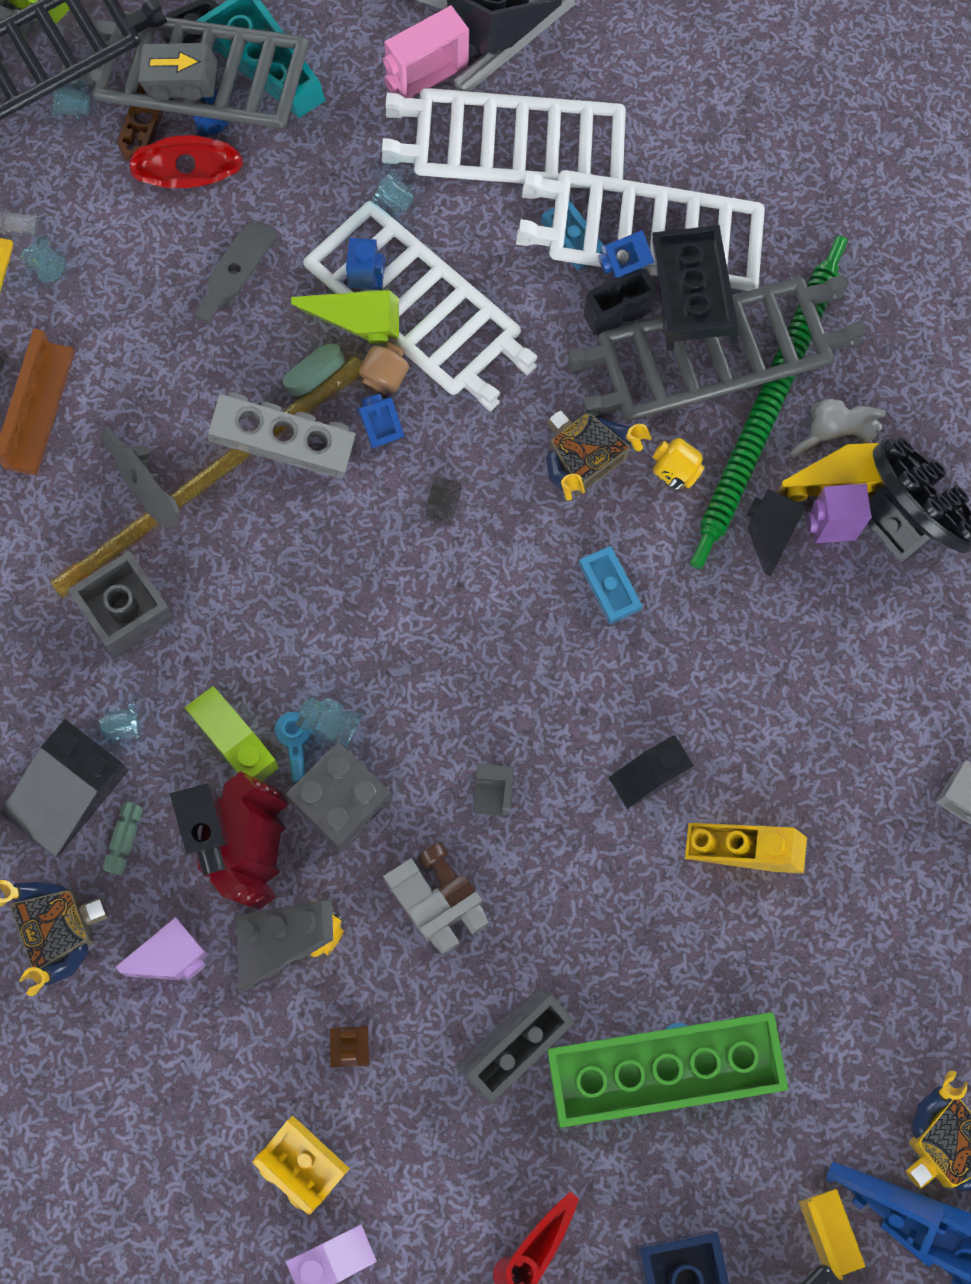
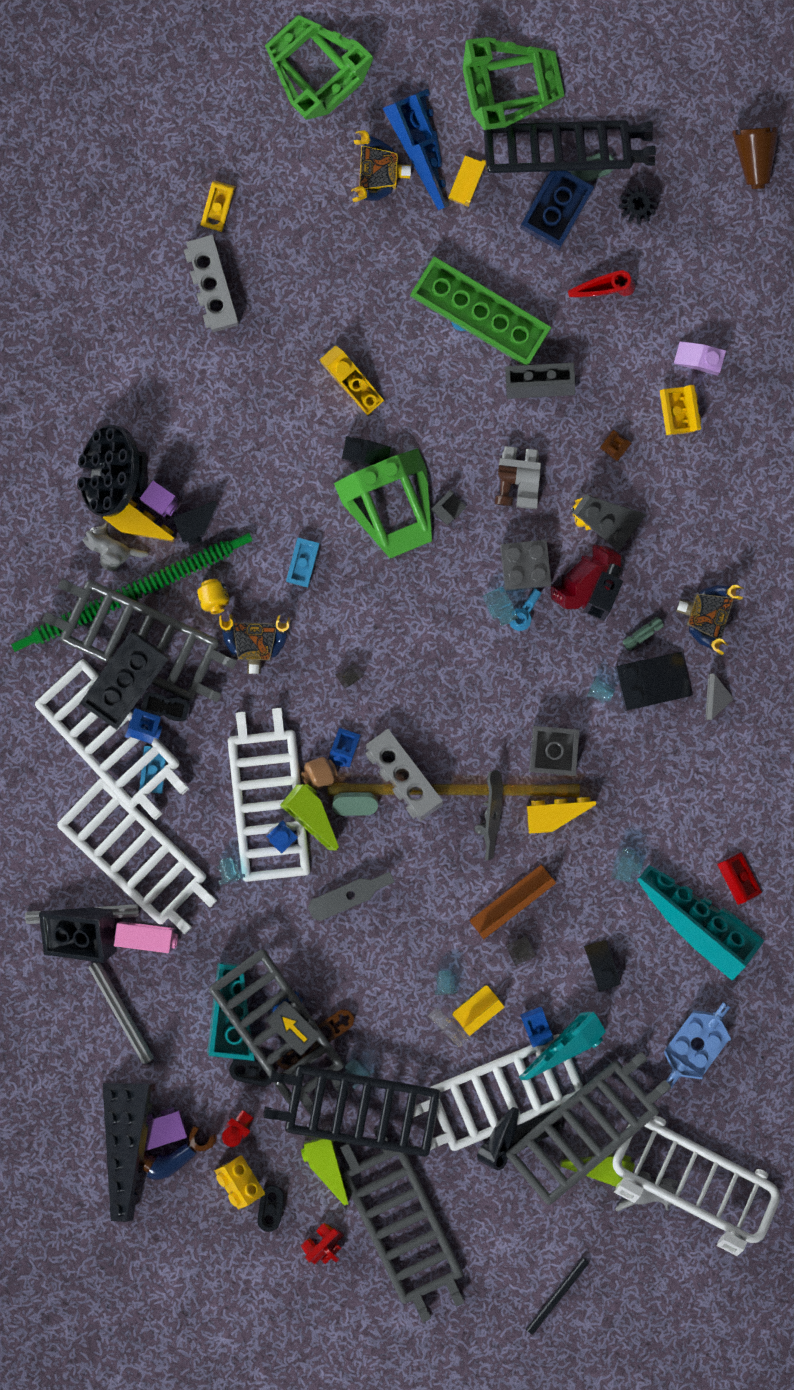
camera: 135 degrees left, 15 degrees up
(63, 532) = (549, 817): none -> yellow slope
(157, 162) = (341, 992): red piece -> none
(166, 955) = (666, 557): lavender slope -> none
(231, 735) = (552, 640): lime slope -> none
(608, 761) = (378, 475): none -> bright green windscreen

